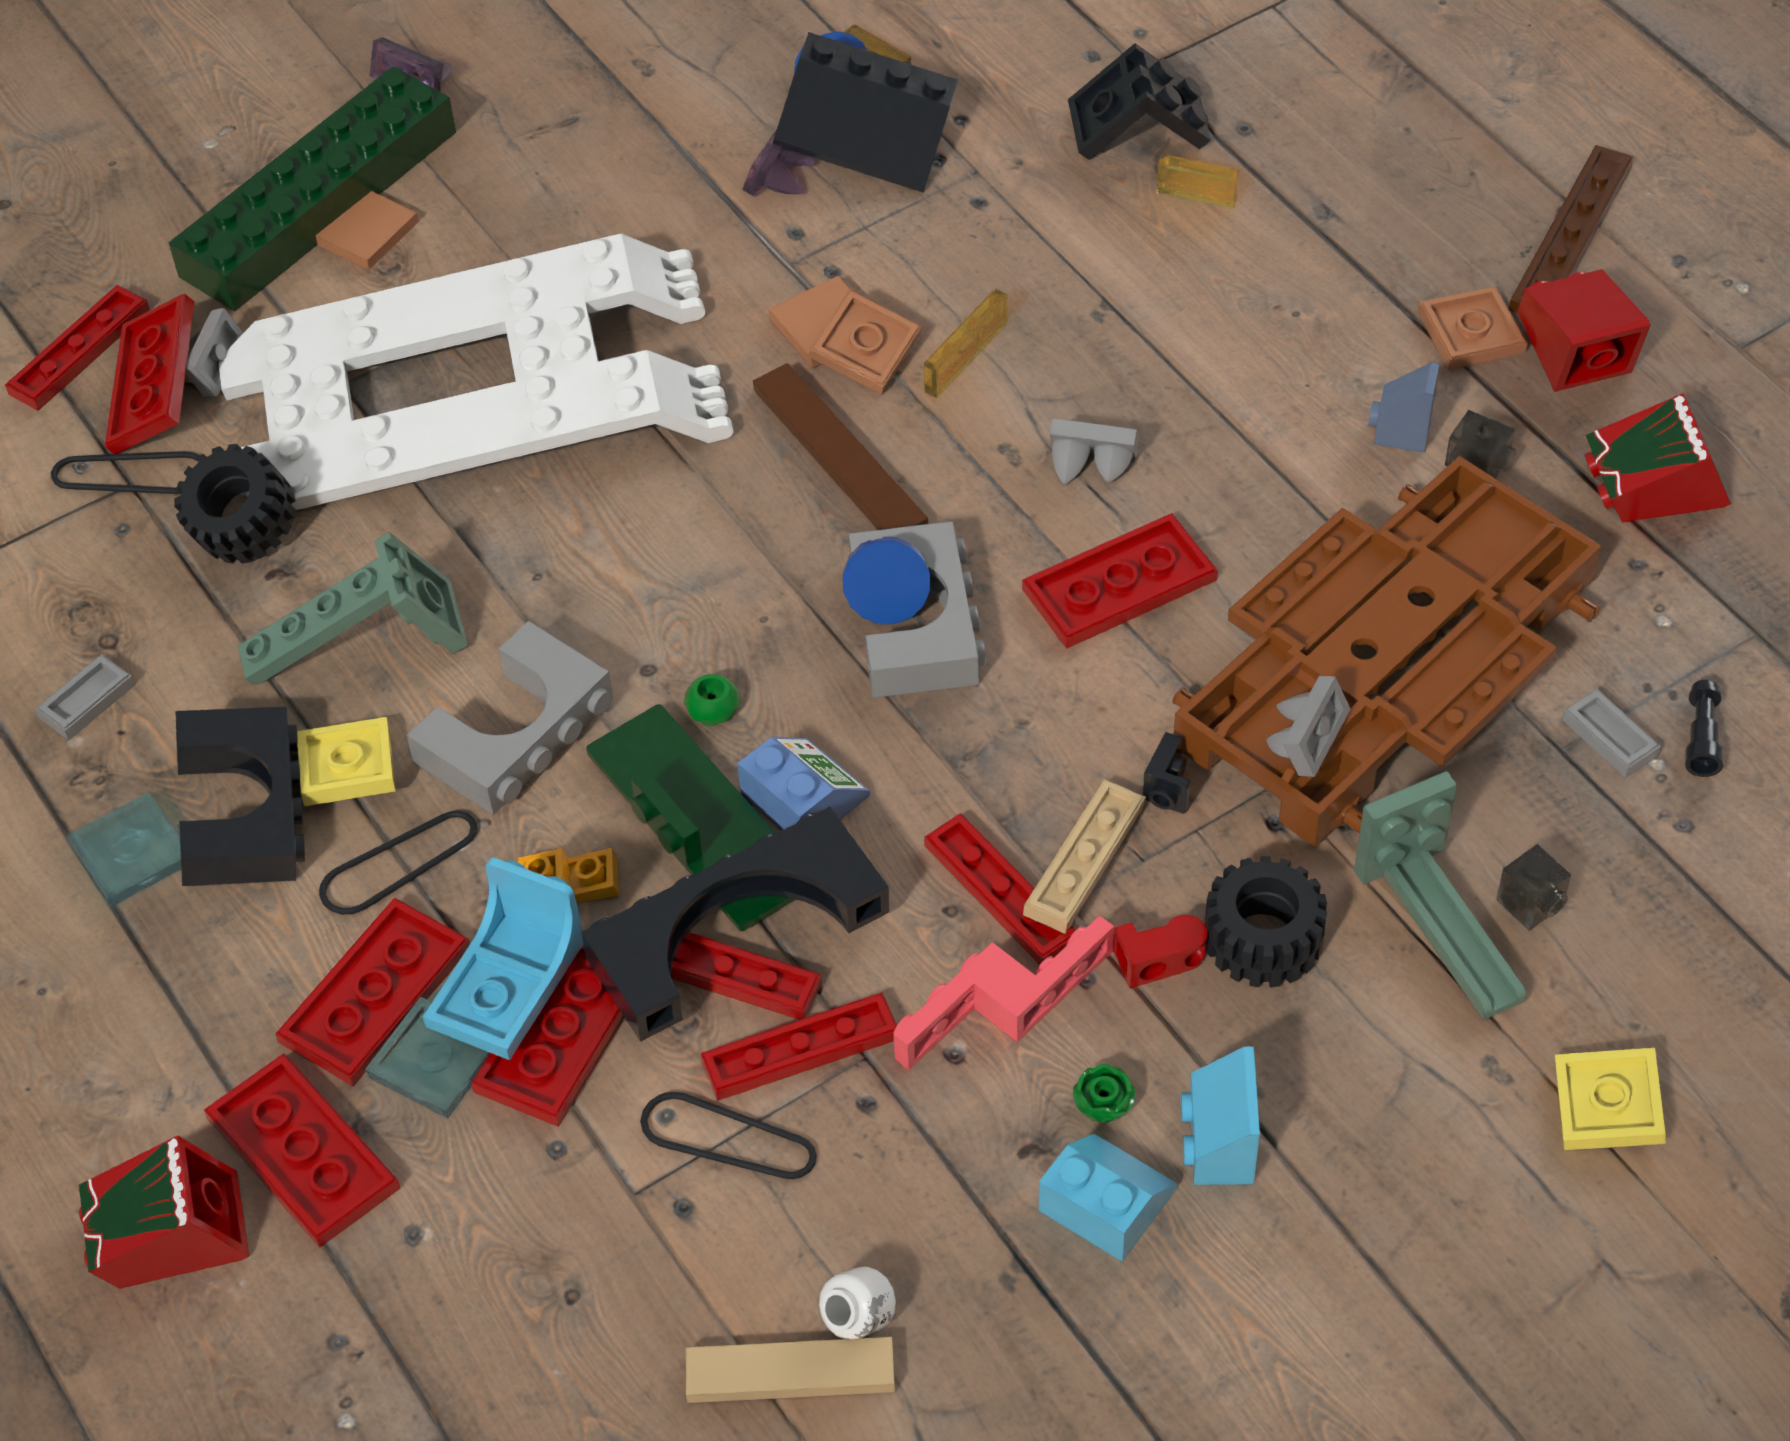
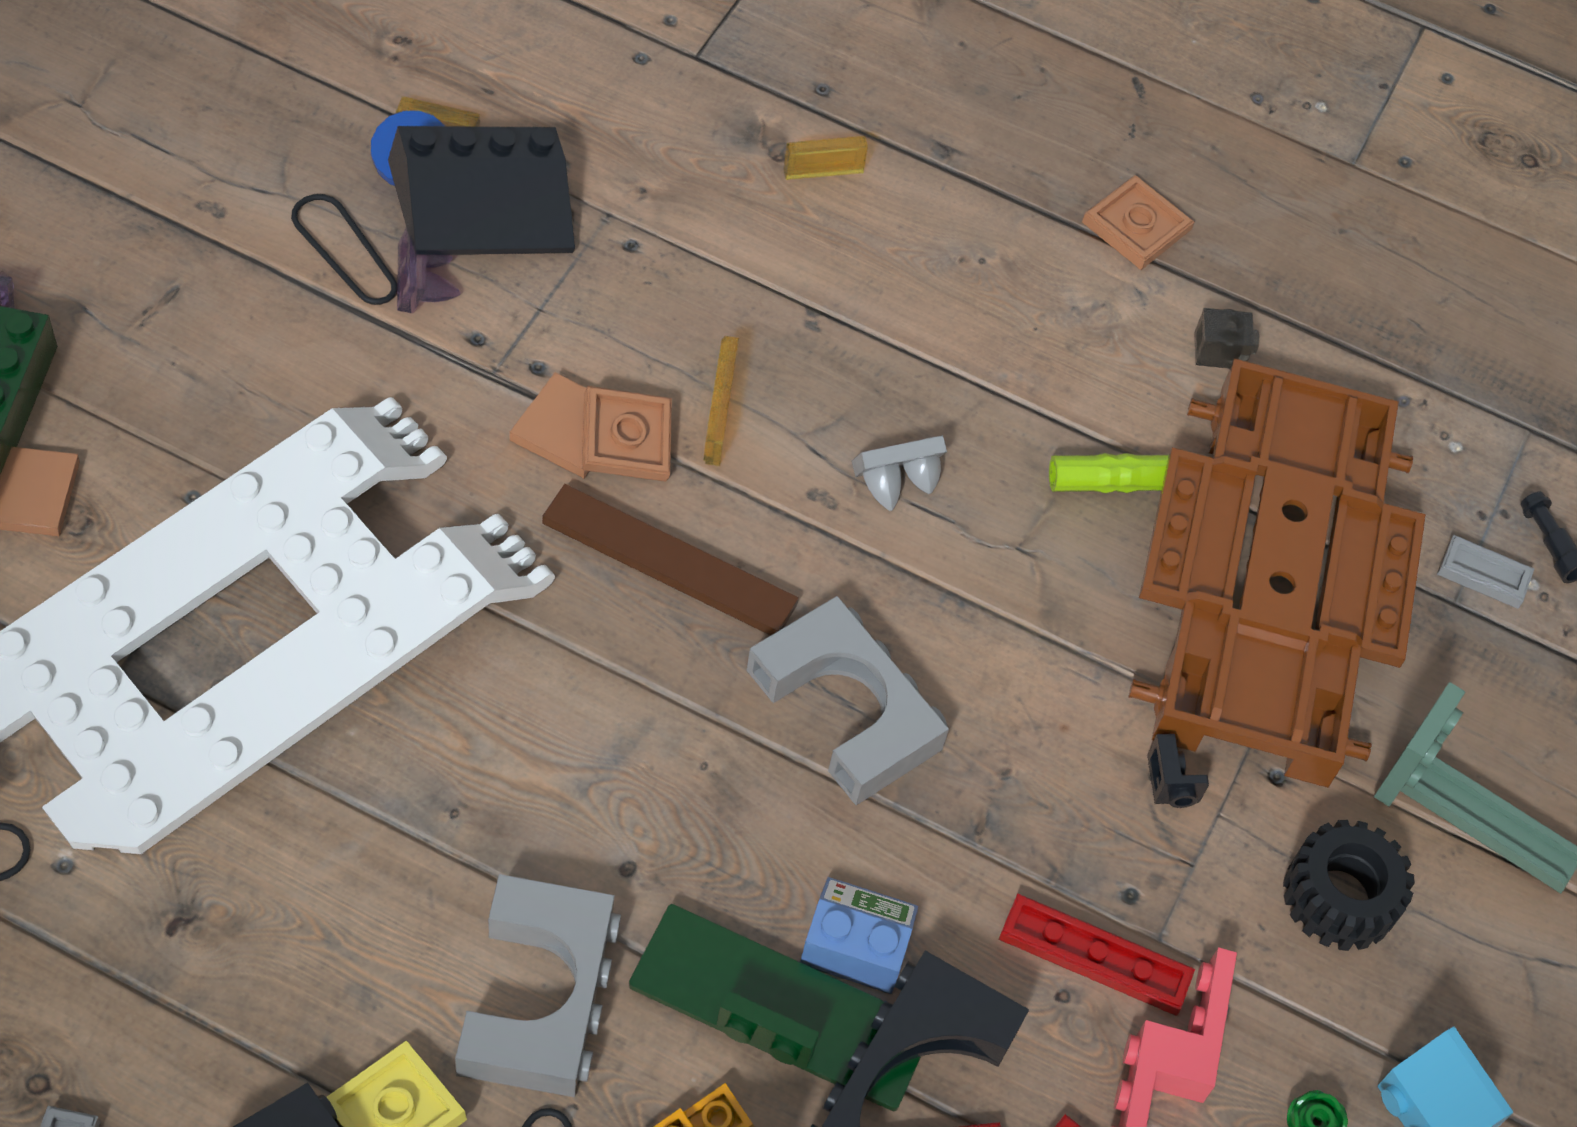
camera: 40 degrees left, 5 degrees up
(215, 483) = (64, 855): black tyre -> none
(395, 577) = (352, 891): sand green bracket -> none
(711, 128) = (374, 301): none -> black piece
(714, 710) = (714, 889): green plate -> none
(886, 580) = (814, 682): blue tile -> none
(1084, 856) = (1153, 889): tan tile -> none
(1119, 580) = (1001, 591): red tile -> none
(1130, 89) = (734, 87): black bracket -> none
(1161, 950) = (1284, 944): red leg -> none
(1273, 515) = (1107, 473): none -> lime axle
(1316, 724) = (1291, 664): light grey tile -> none
(1405, 410) = (1151, 324): sand blue slope -> none
(1533, 887) = (1531, 750): clear smoke brick -> none
(1576, 220) = (1161, 102): reddish brown tile -> none
(1583, 328) = (1241, 191): red slope -> none
(1655, 464) = (1375, 301): slope -> none

